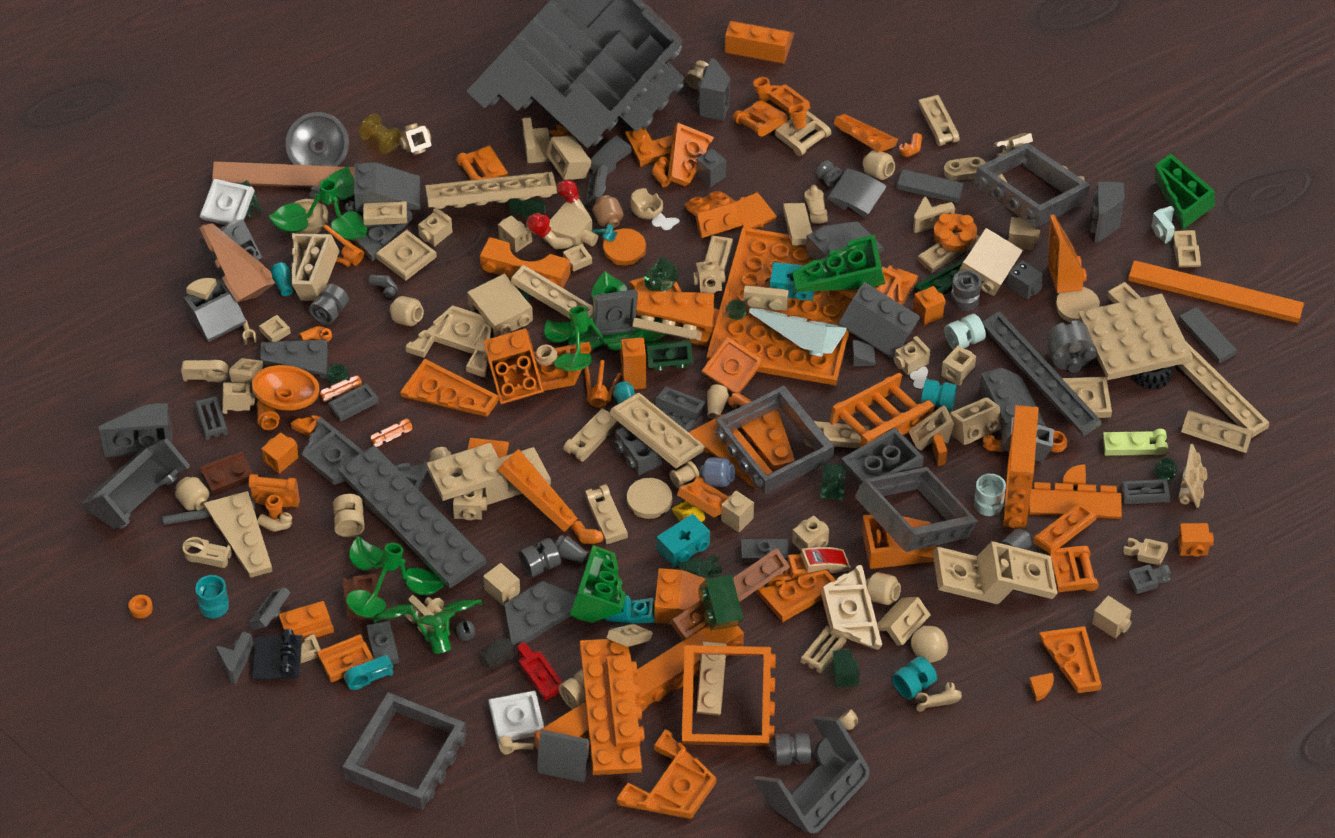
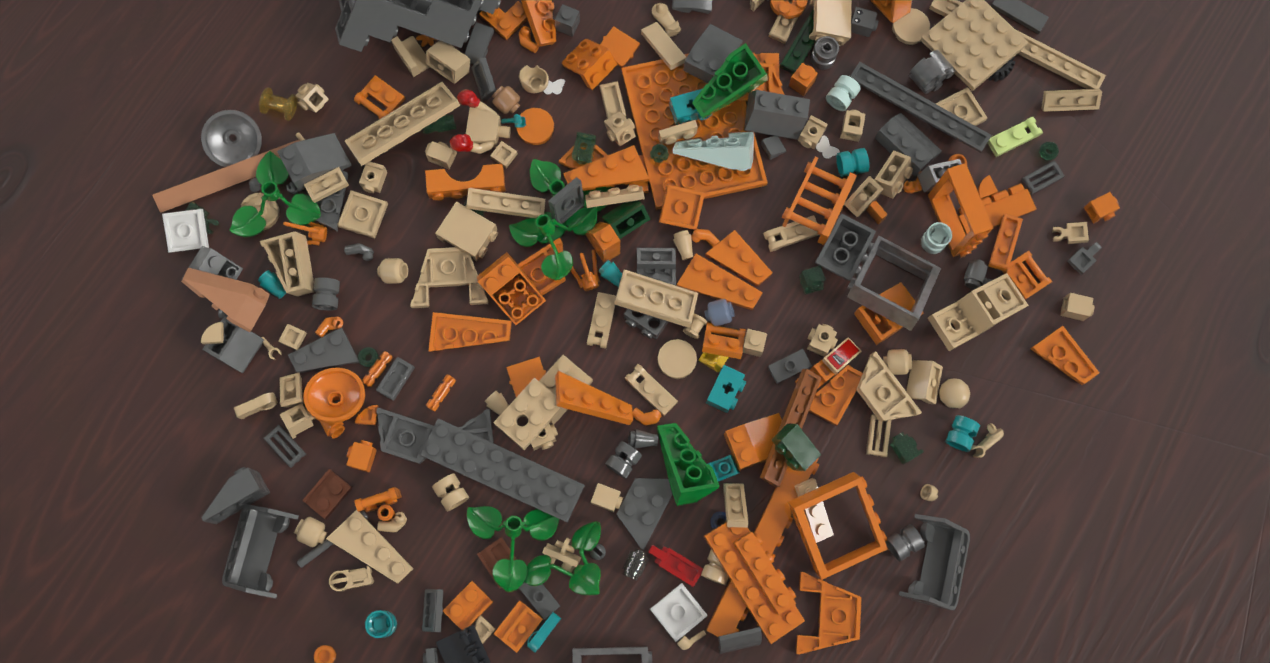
camera: 30 degrees left, 25 degrees up
(542, 352) = (527, 262): tan plate -> none
(701, 568) = (746, 409): clear green plate -> none
(802, 421) = (767, 240): flat silver window -> none
(1041, 685) = (1054, 391): orange tile -> none
(1193, 479) = (1073, 148): tan hinge -> none

